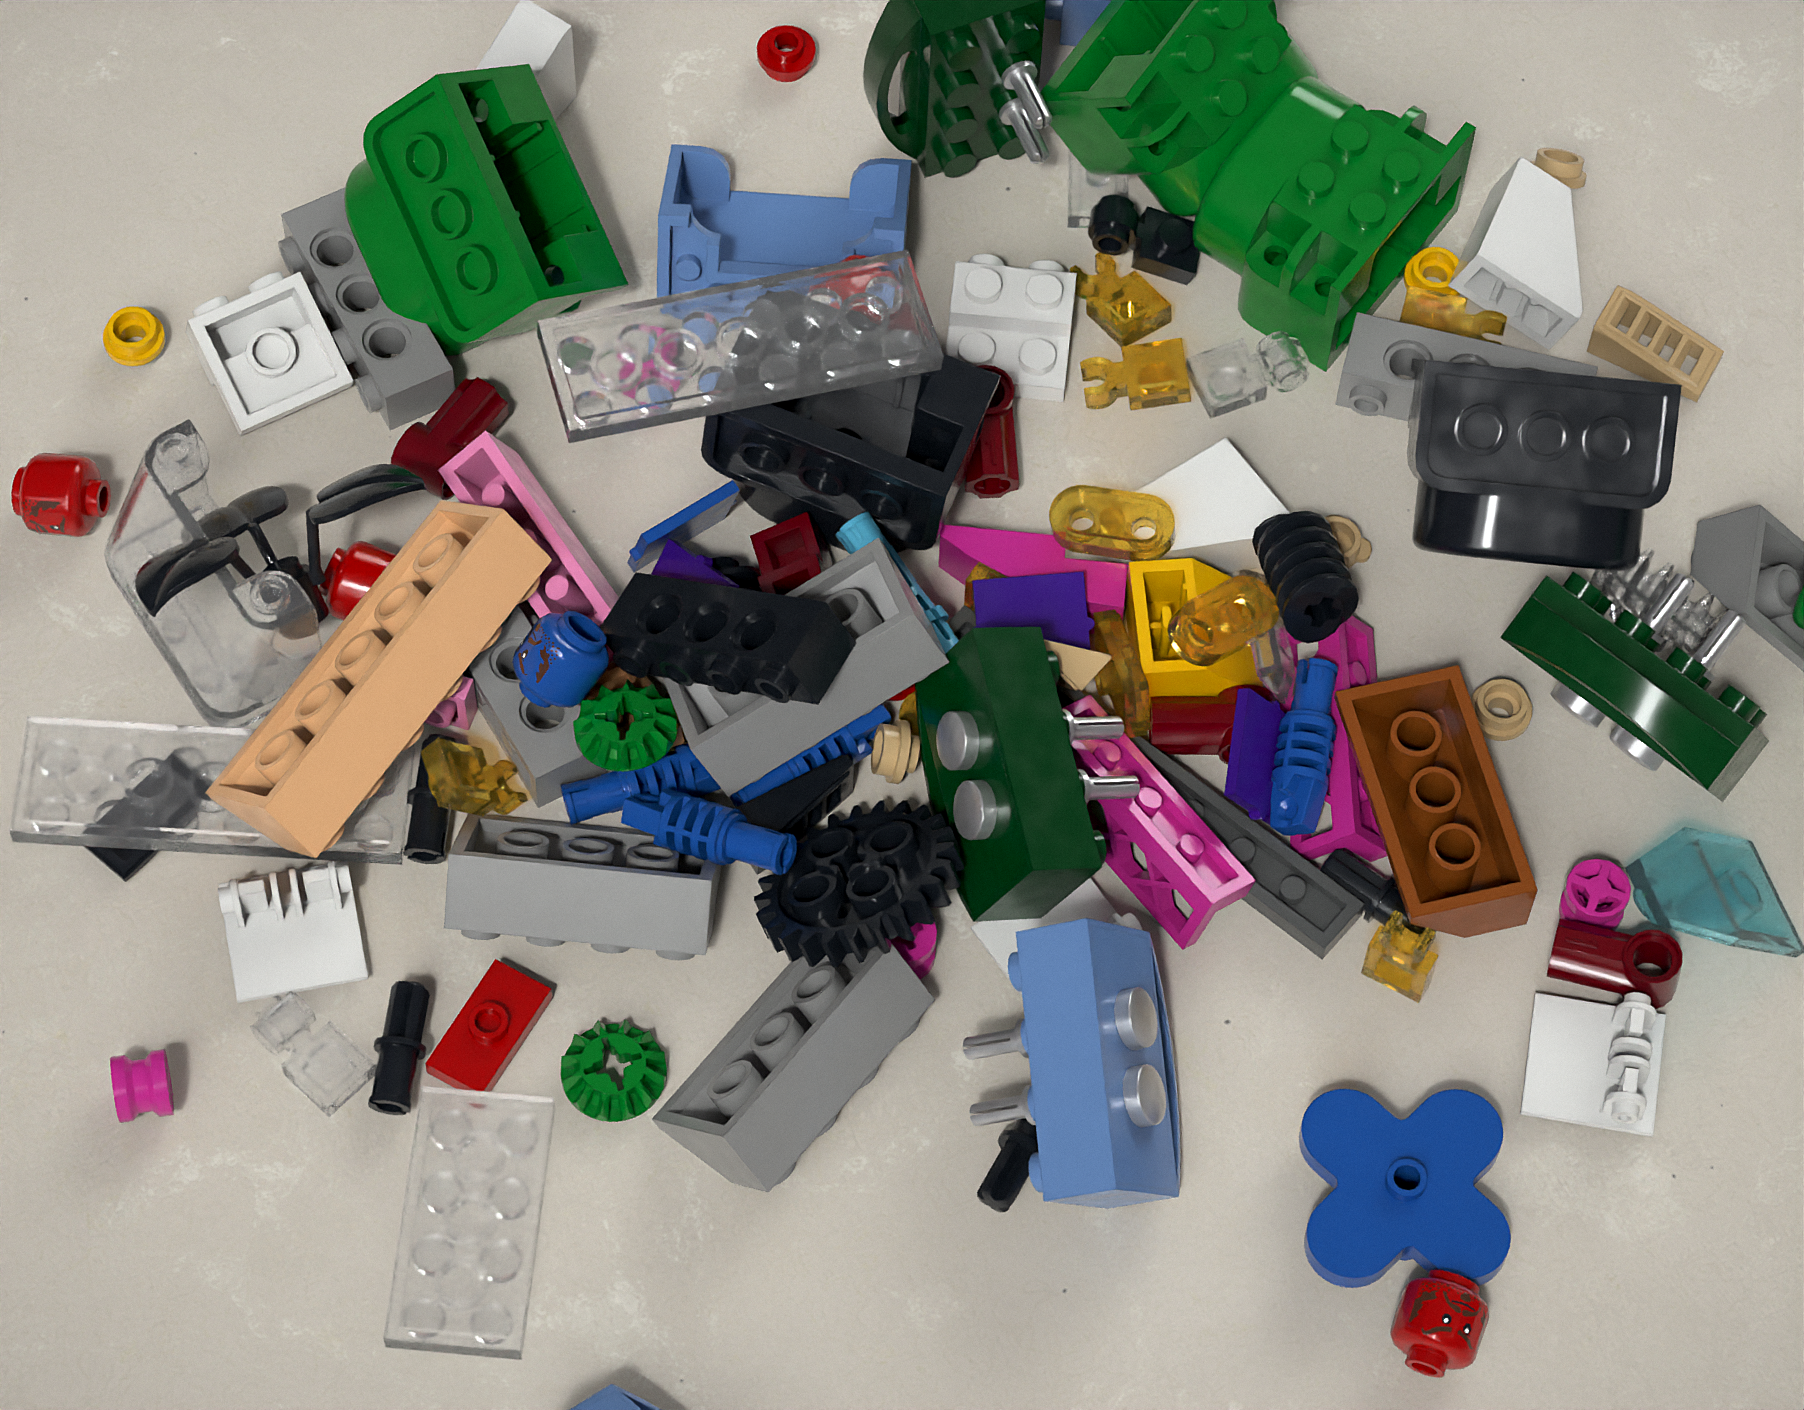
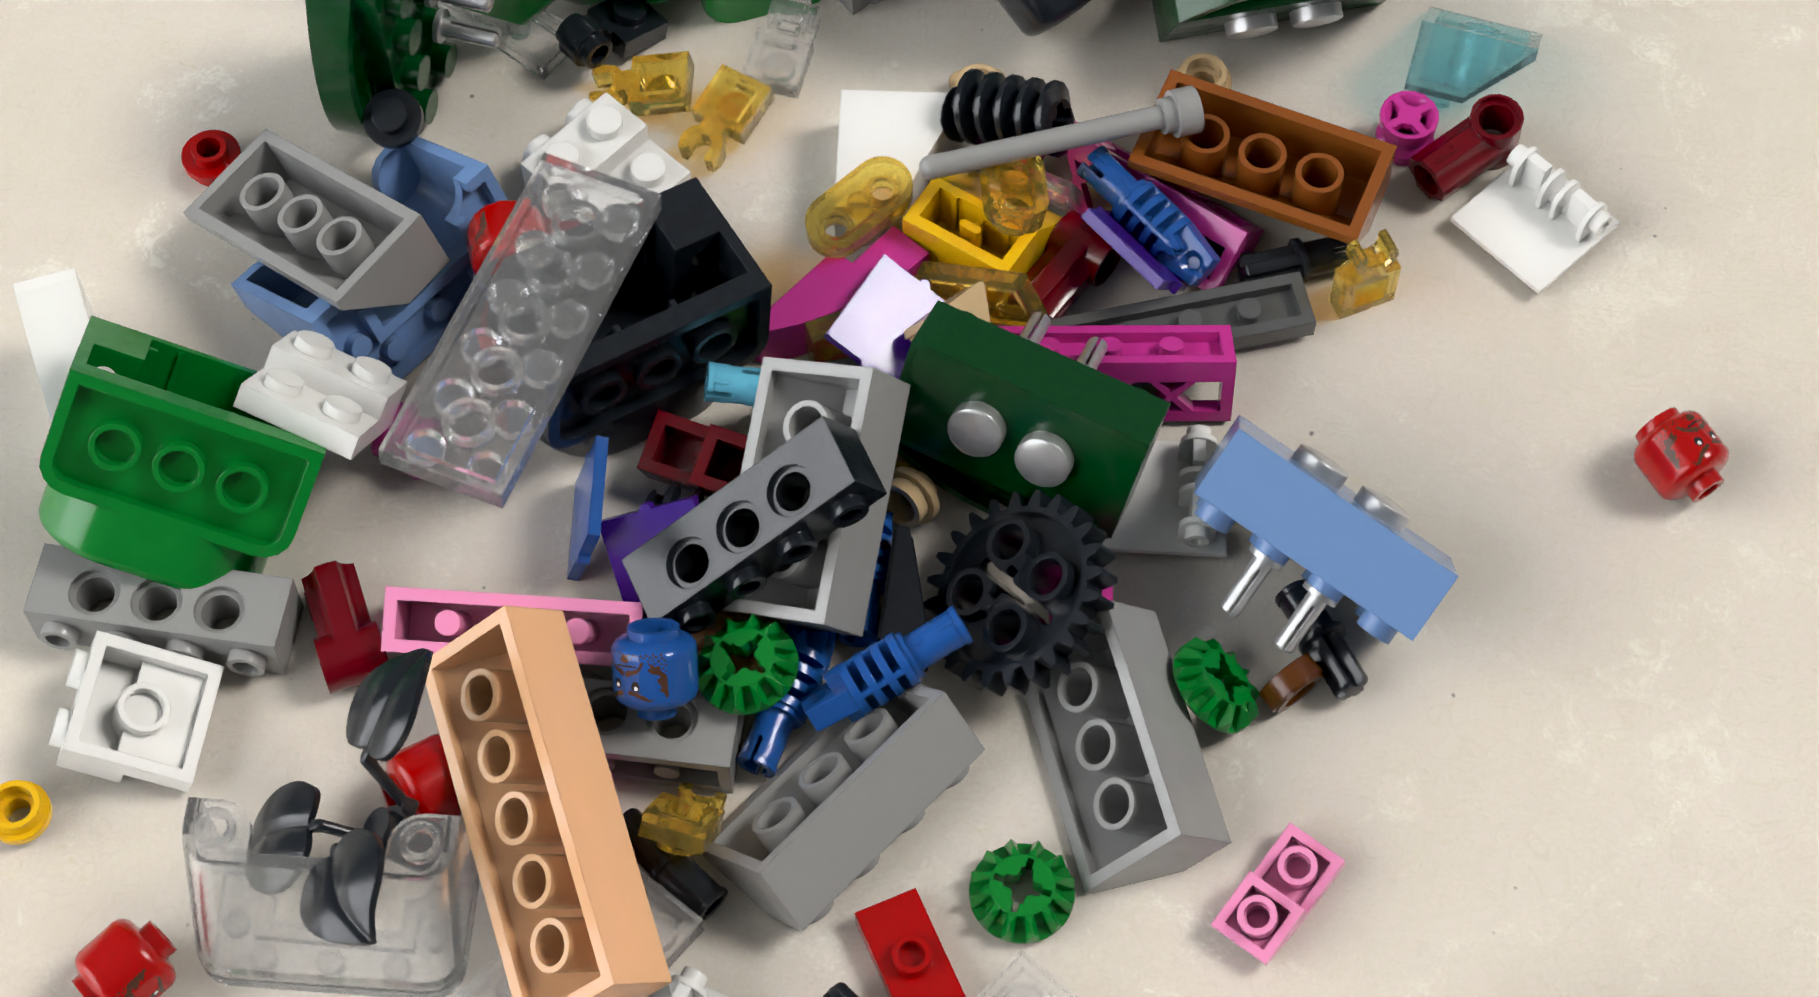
camera: 50 degrees left, 0 degrees up
(595, 255) = (323, 393): none -> white plate
(757, 163) = (319, 227): none -> light grey slope
(761, 1267) = (1278, 894): none -> bright pink slope
(883, 1086) = (1215, 685): none -> green gear
(902, 141) = (393, 118): none -> black plate
(959, 1150) = (1291, 683): none -> reddish brown tile
(1375, 1223) = (1552, 405): blue plant -> none
(1399, 690) = (1175, 113): none -> light grey piece

